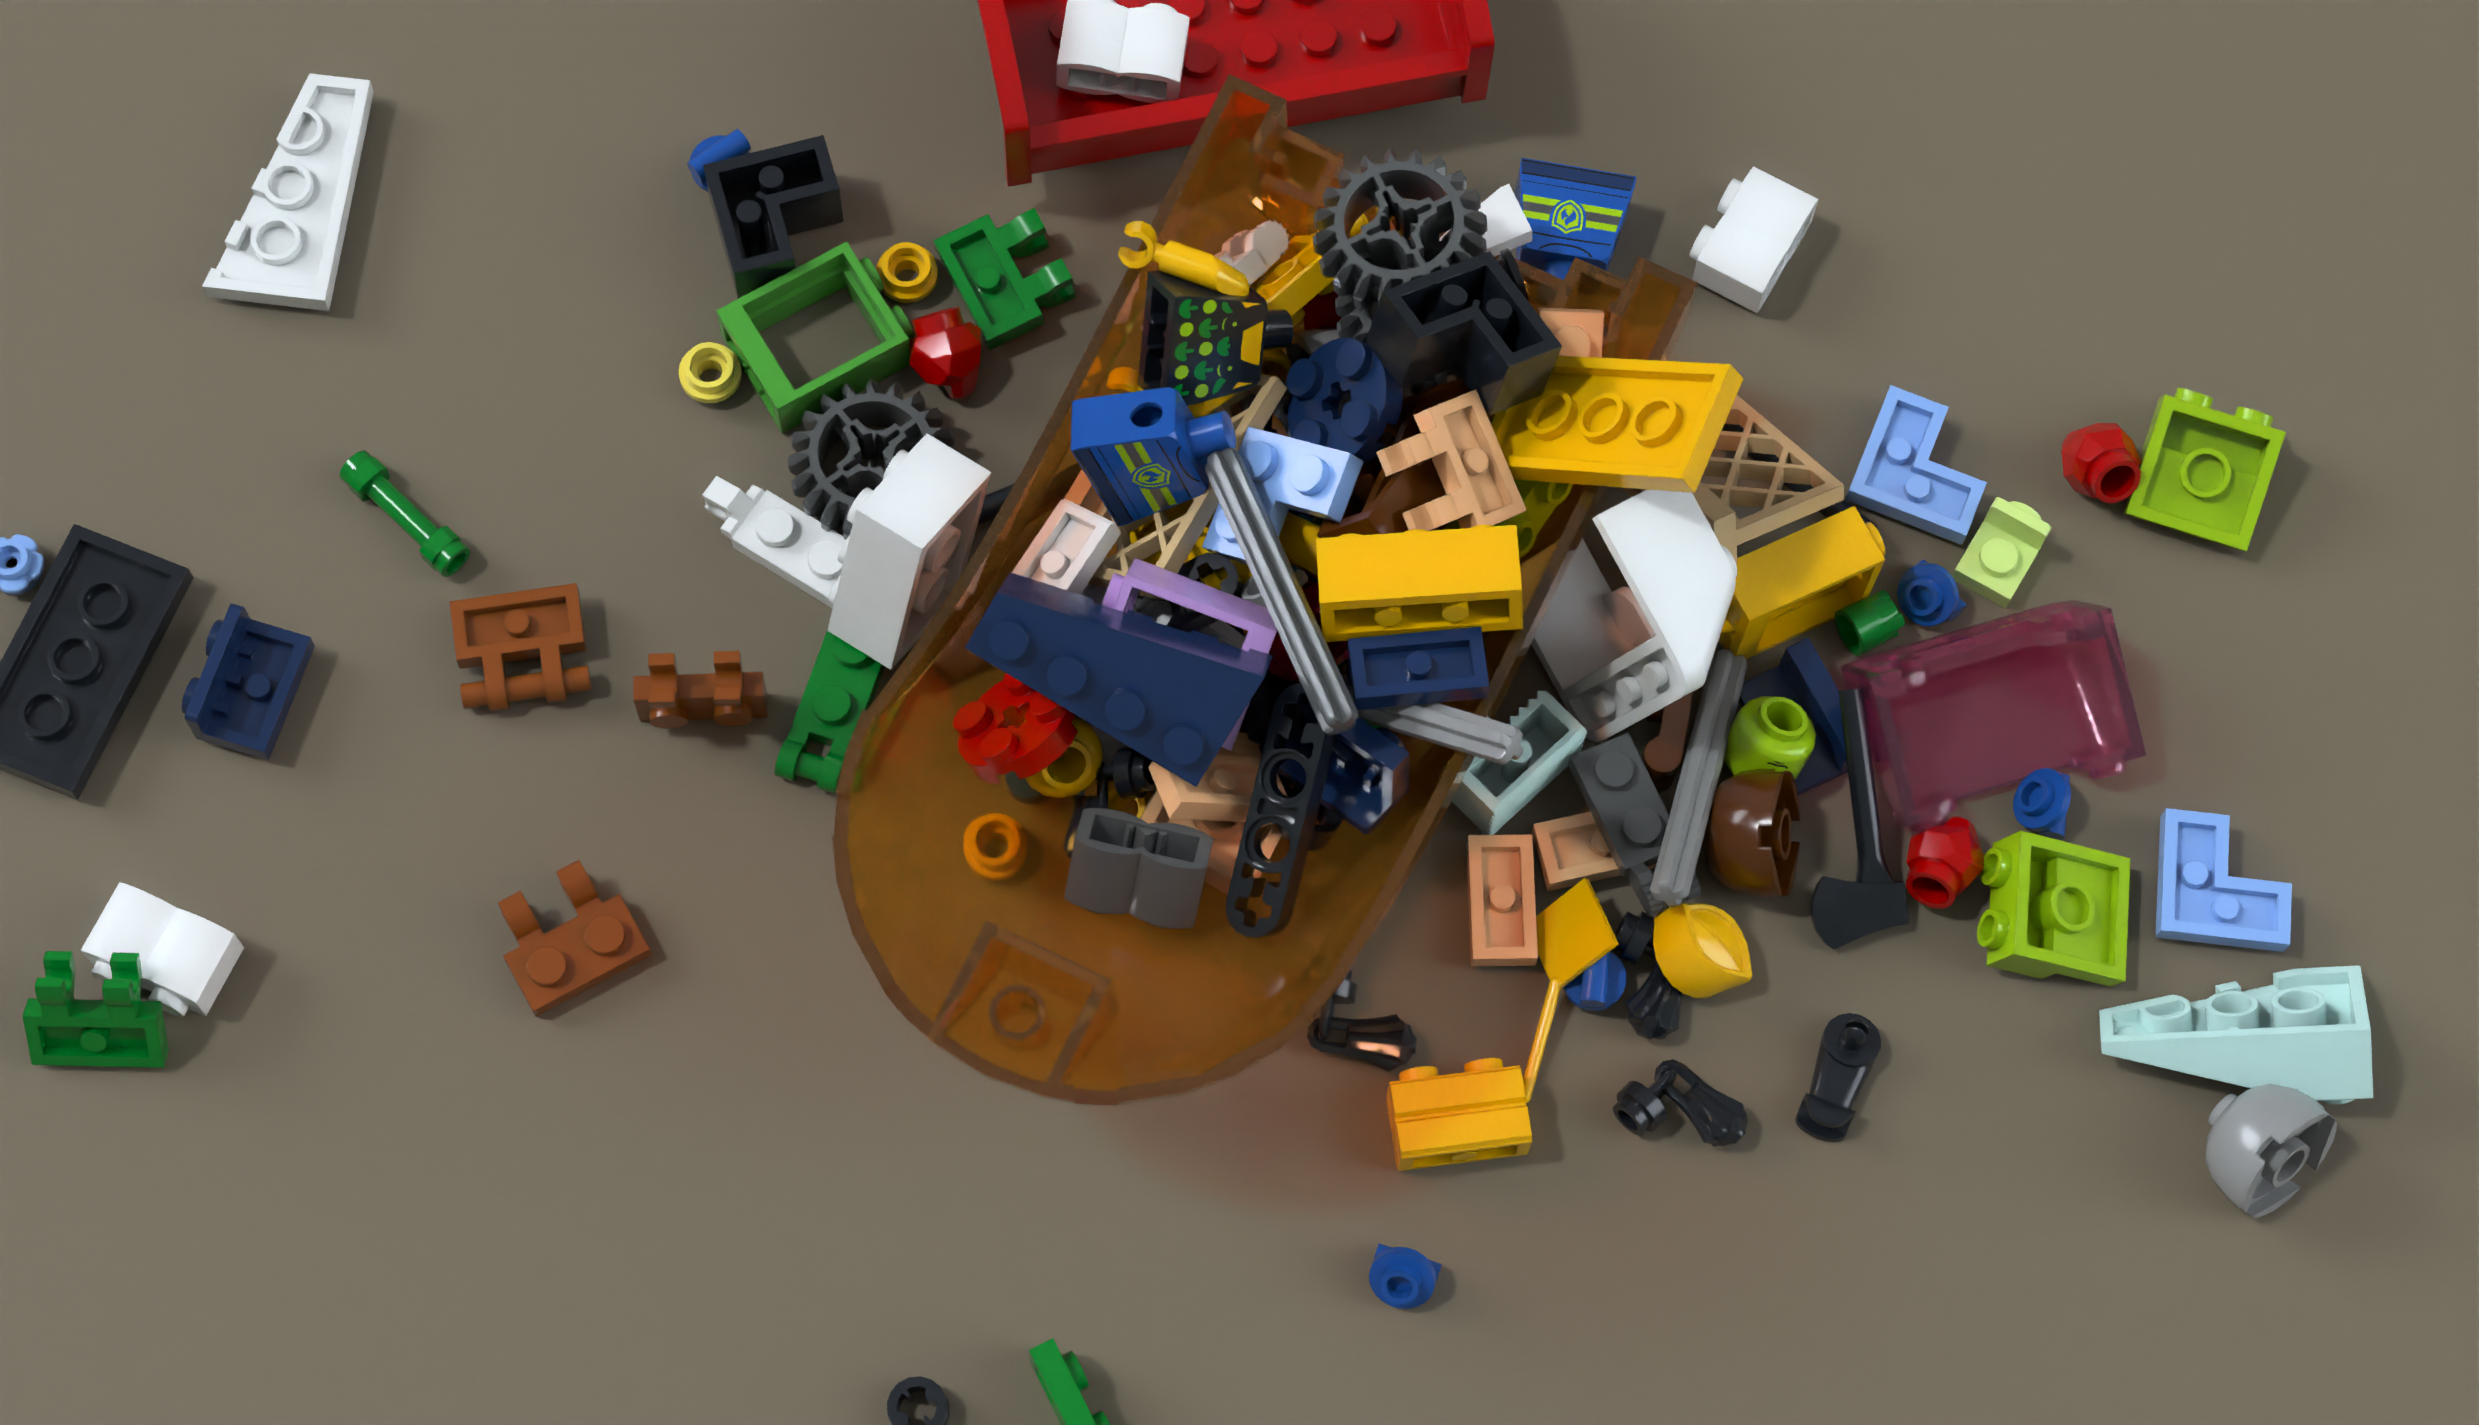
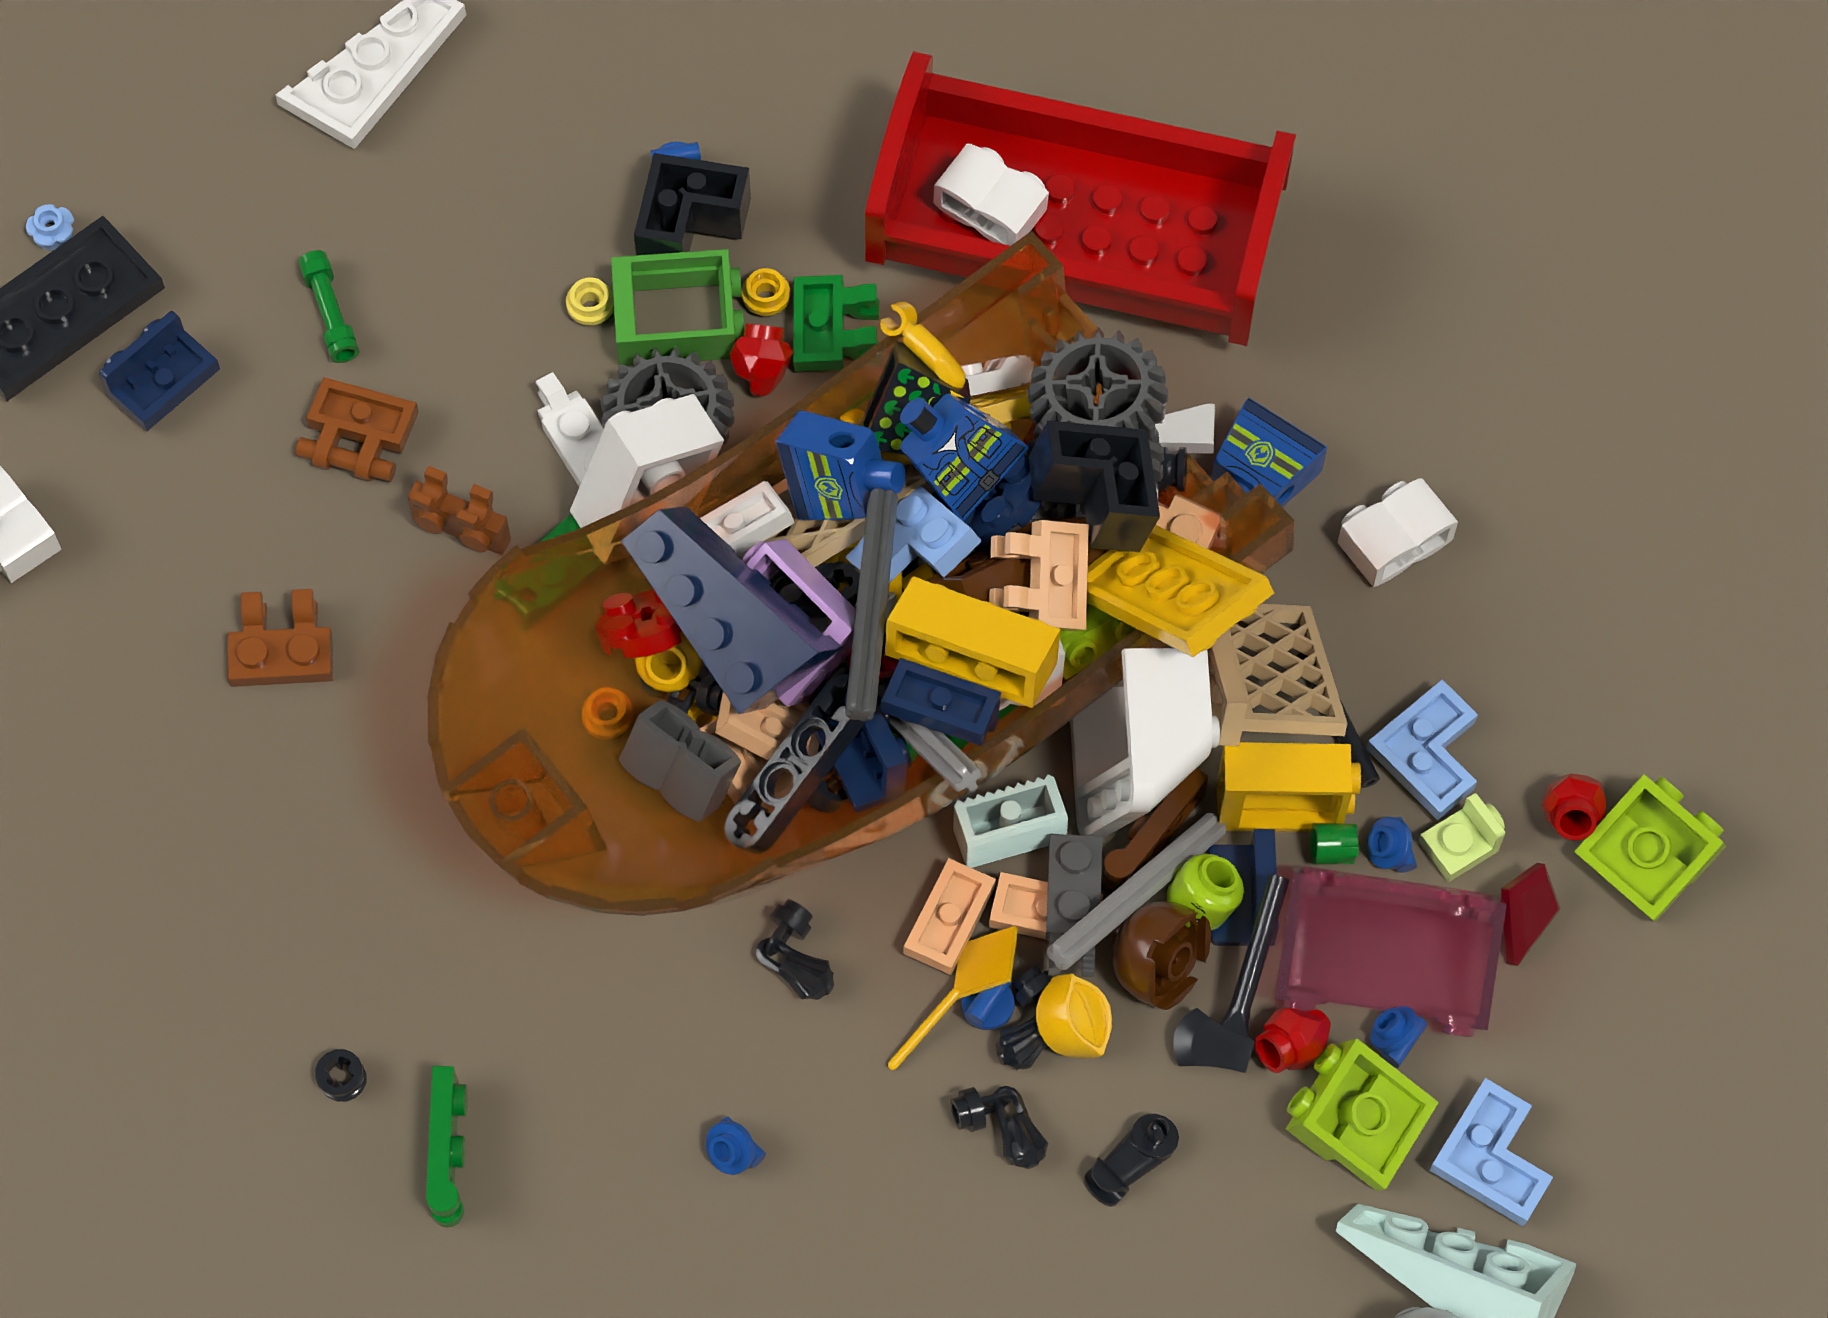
camera: 30 degrees right, 5 degrees down
(1283, 369) = (958, 450): none -> blue torso
(1458, 1115) = (832, 1052): yellow brick -> none
(2115, 586) = (1528, 911): none -> dark red piece

